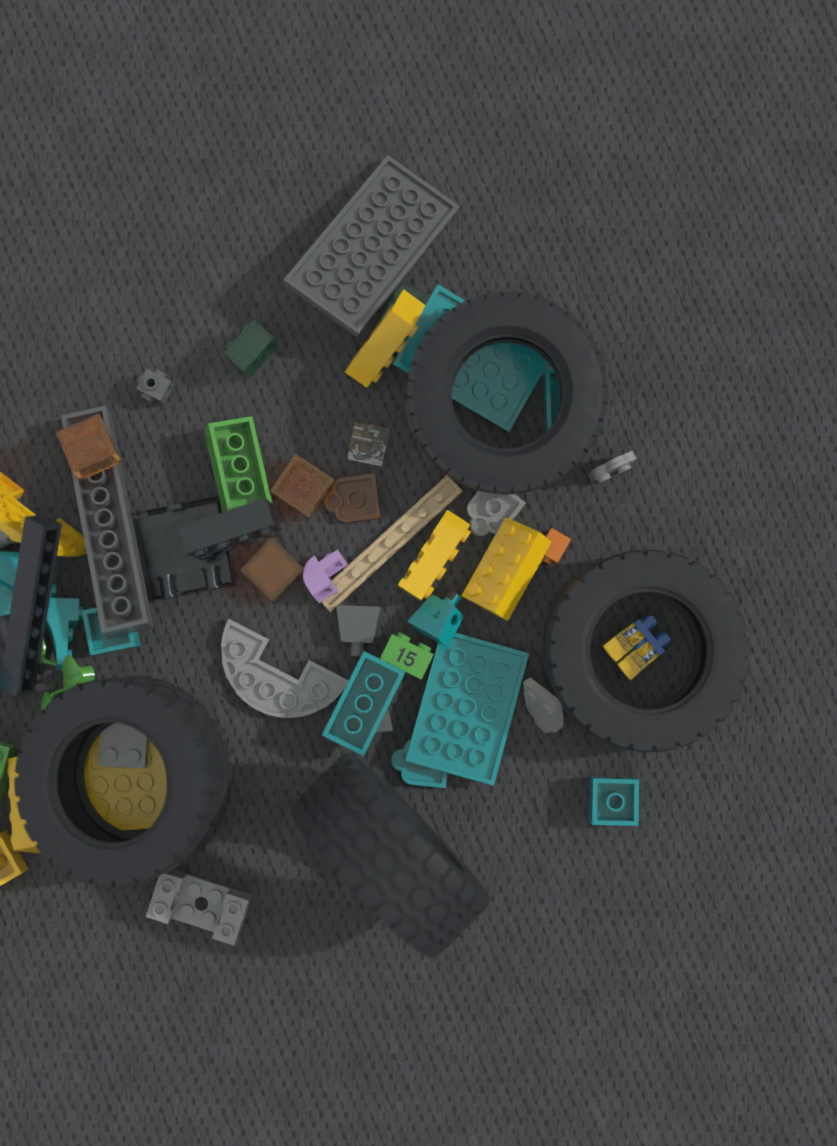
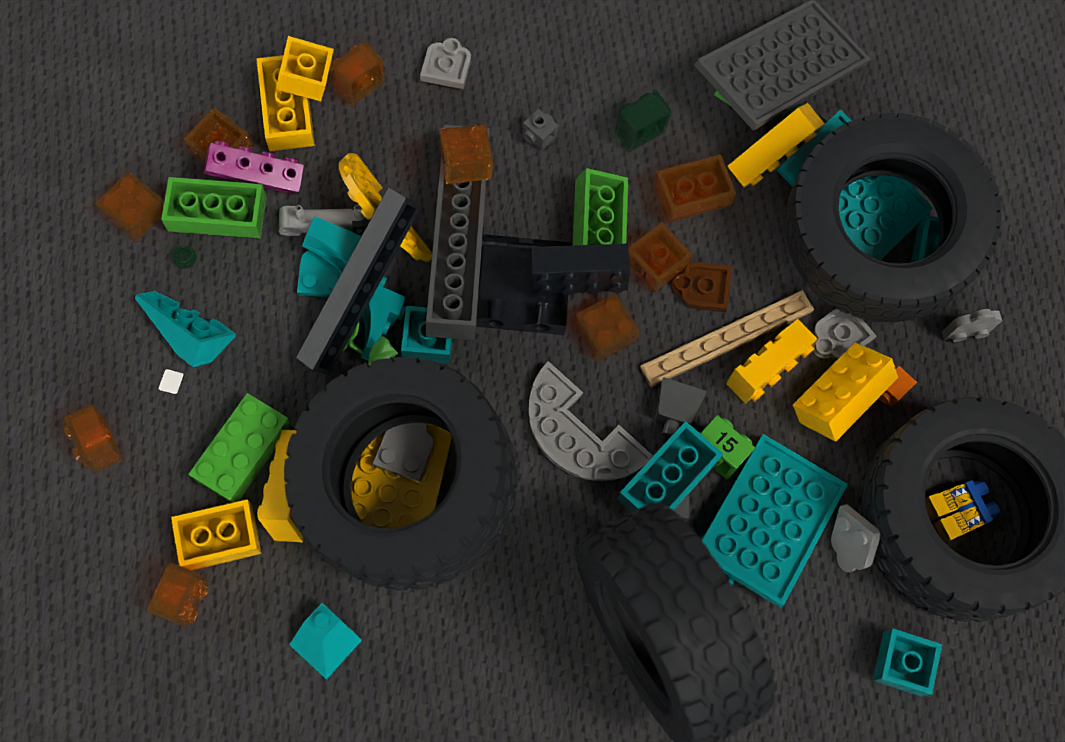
camera: 10 degrees right, 15 degrees down
(45, 341) = (446, 64): none -> light grey plate
(108, 927) = (324, 641): none -> teal slope
(176, 899) = (412, 624): light grey plate -> none
(318, 573) = (654, 343): lavender brick -> none
(319, 404) = (694, 188): none -> clear orange brick
(368, 444) = (730, 242): piece -> none
(438, 618) = (762, 420): teal torso -> none

